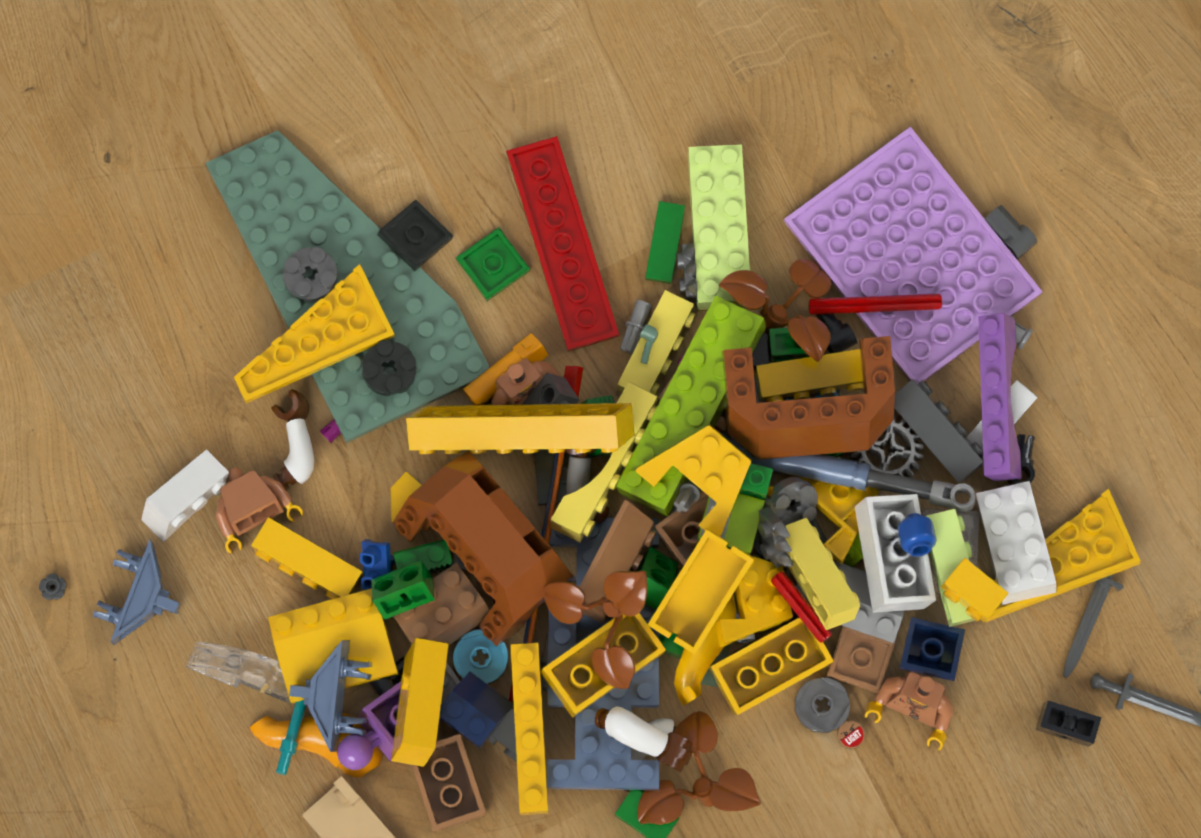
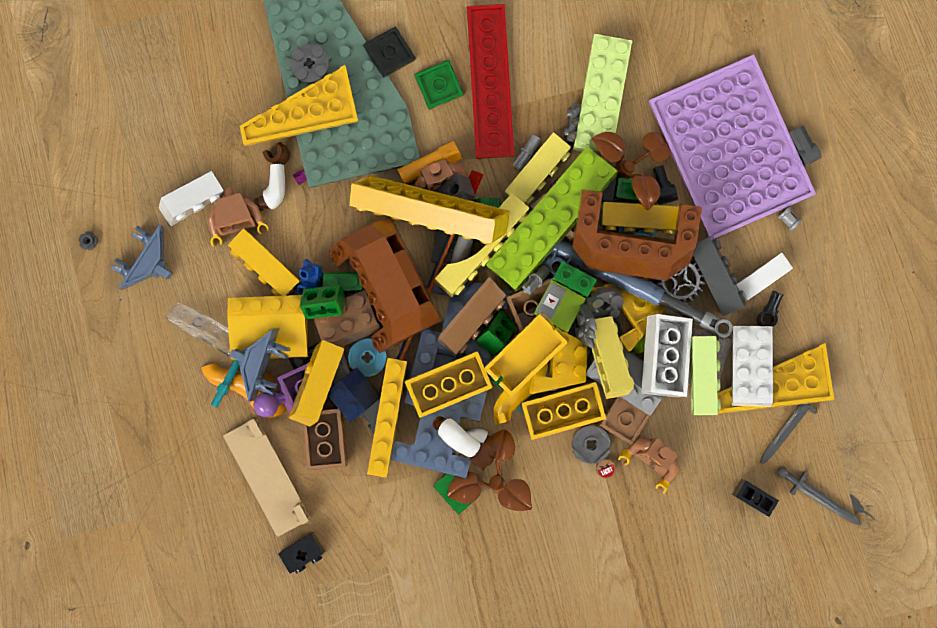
camera: 20 degrees right, 10 degrees up
(387, 353) = (338, 143): pearl dark grey plate -> none
(401, 491) = (340, 230): yellow sticker -> none
(625, 595) = (469, 348): dark orange plant -> none
(650, 334) = (535, 161): sand green hand -> none
(665, 242) = (561, 97): green tile -> none
(711, 465) = (553, 266): yellow wing -> none
(800, 606) = (592, 377): red axle -> none
(875, 304) = (697, 176): red axle -> none
(917, 534) = (685, 349): blue head -> none
(932, 649) = (675, 426): dark blue slope -> none
(974, 591) = (714, 397): yellow brick -> none
(1000, 442) = (760, 287): medium lavender arch -> none

